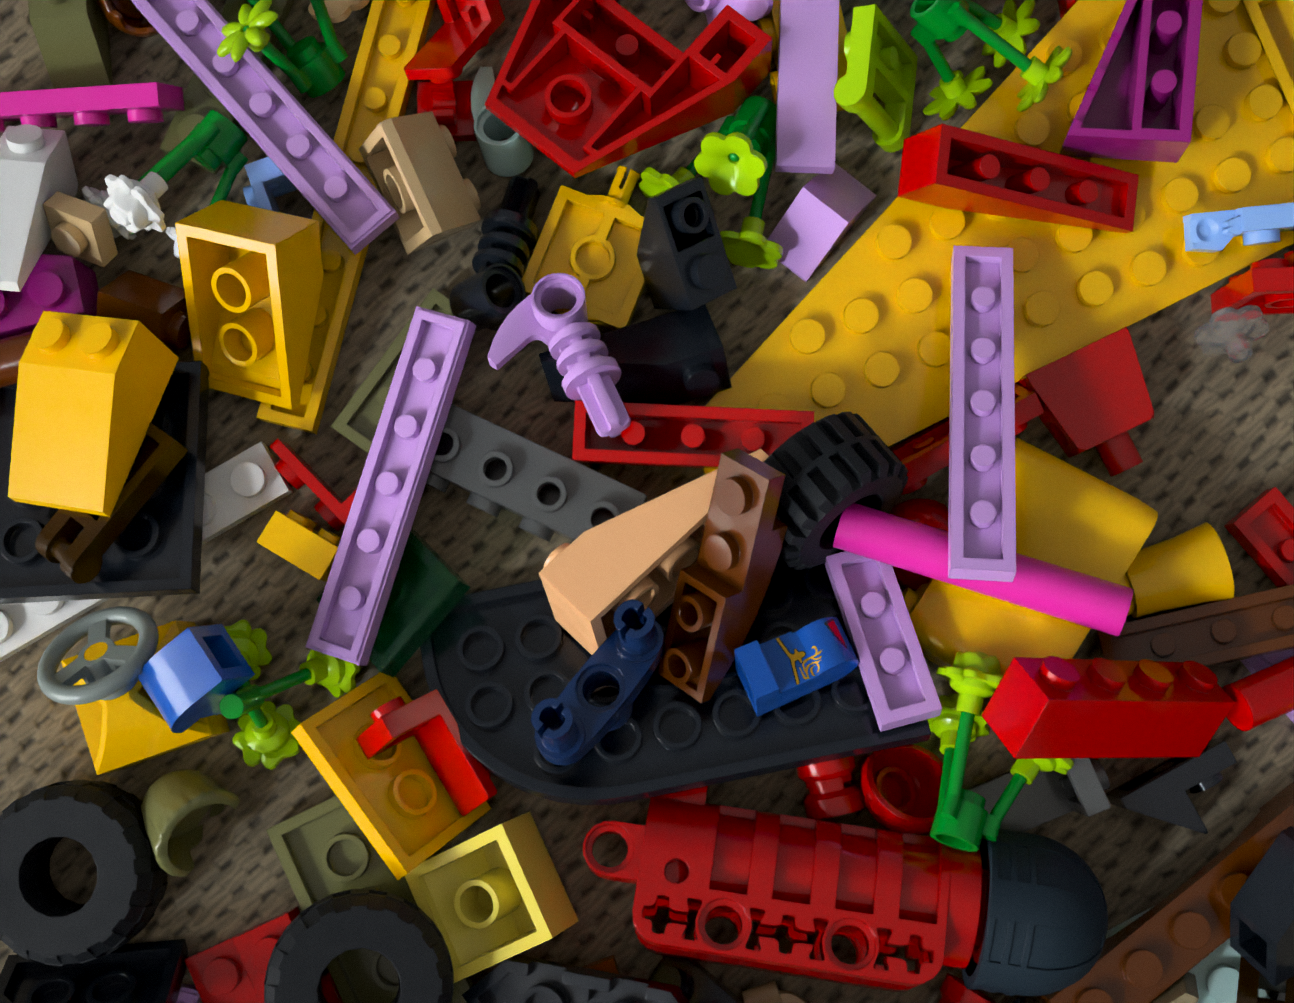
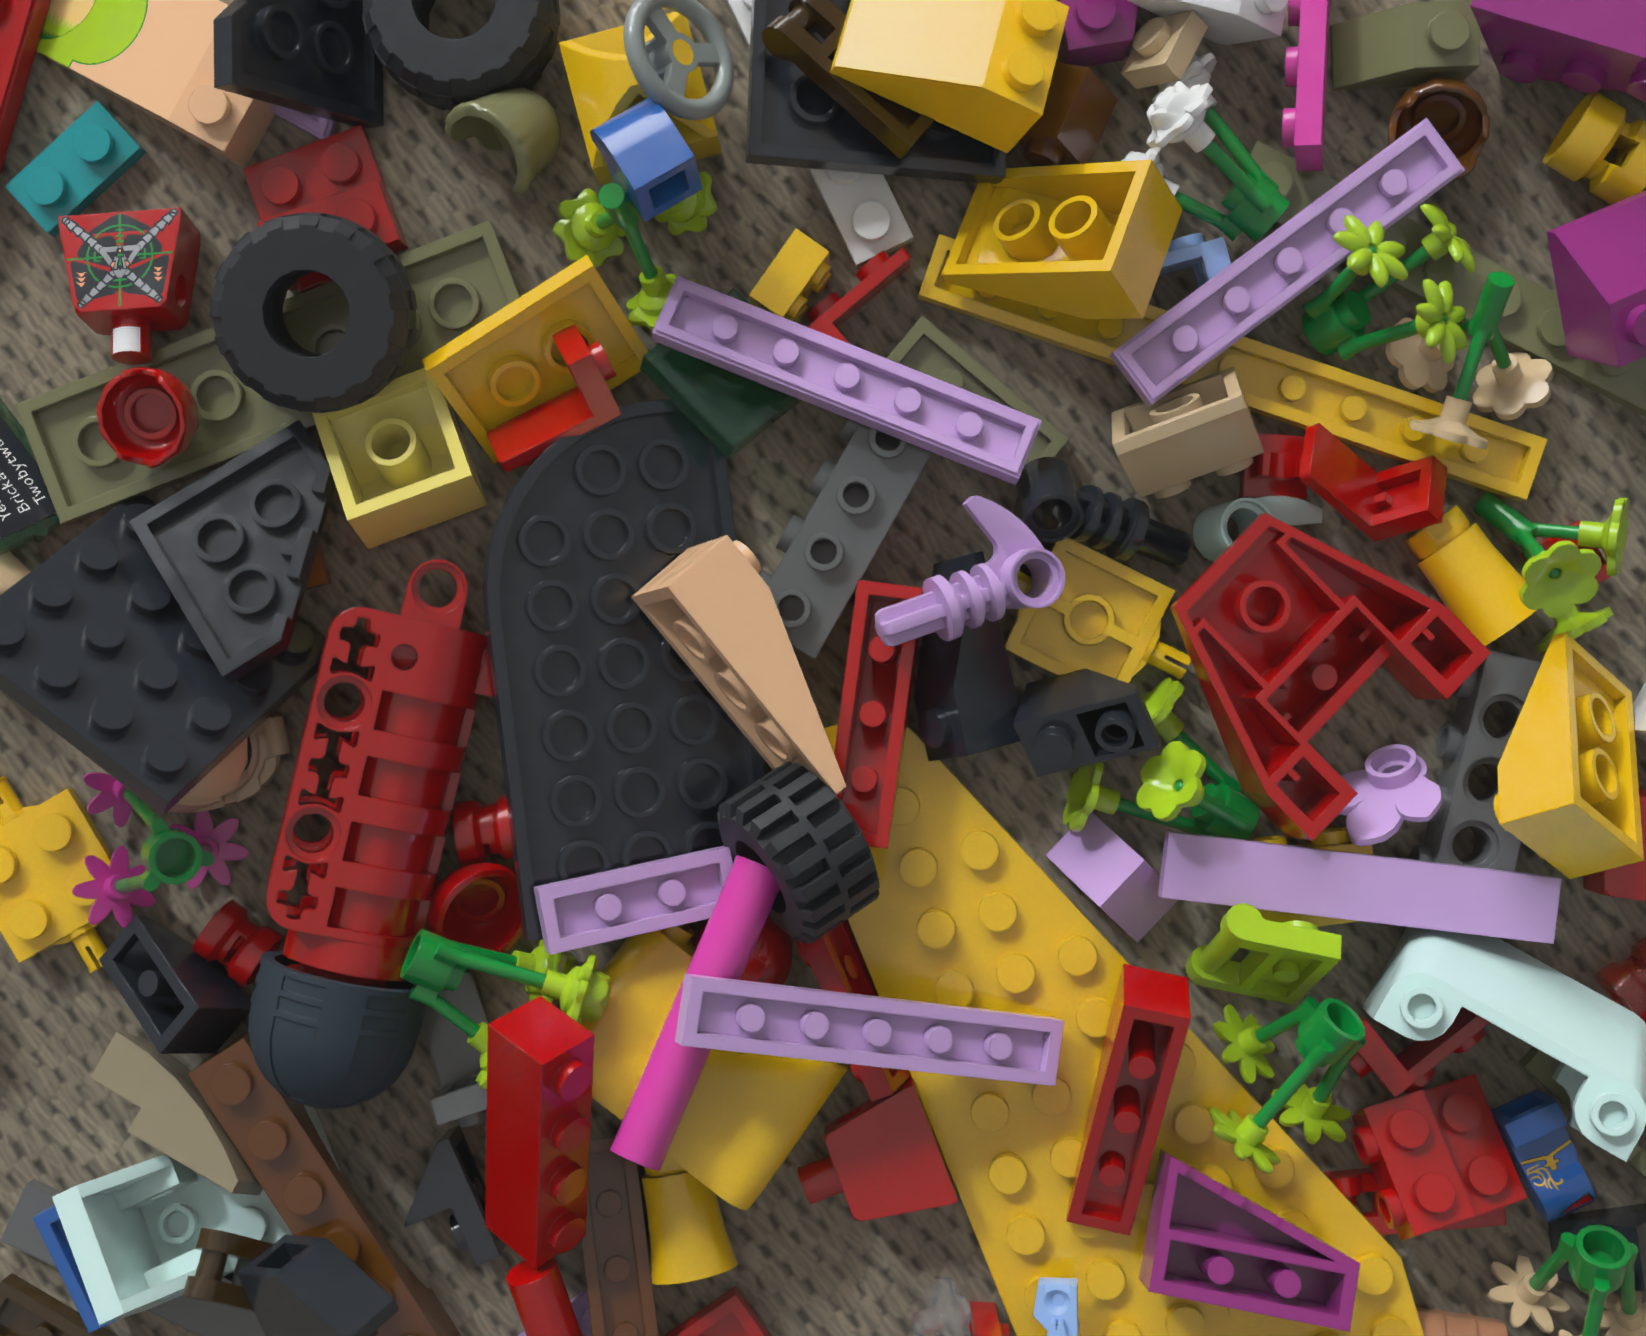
camera: 90 degrees right, 5 degrees up
(626, 660) = (631, 621): dark blue connector -> none
(734, 568) = (705, 739): reddish brown slope -> none
(794, 664) = (614, 802): blue leg -> none

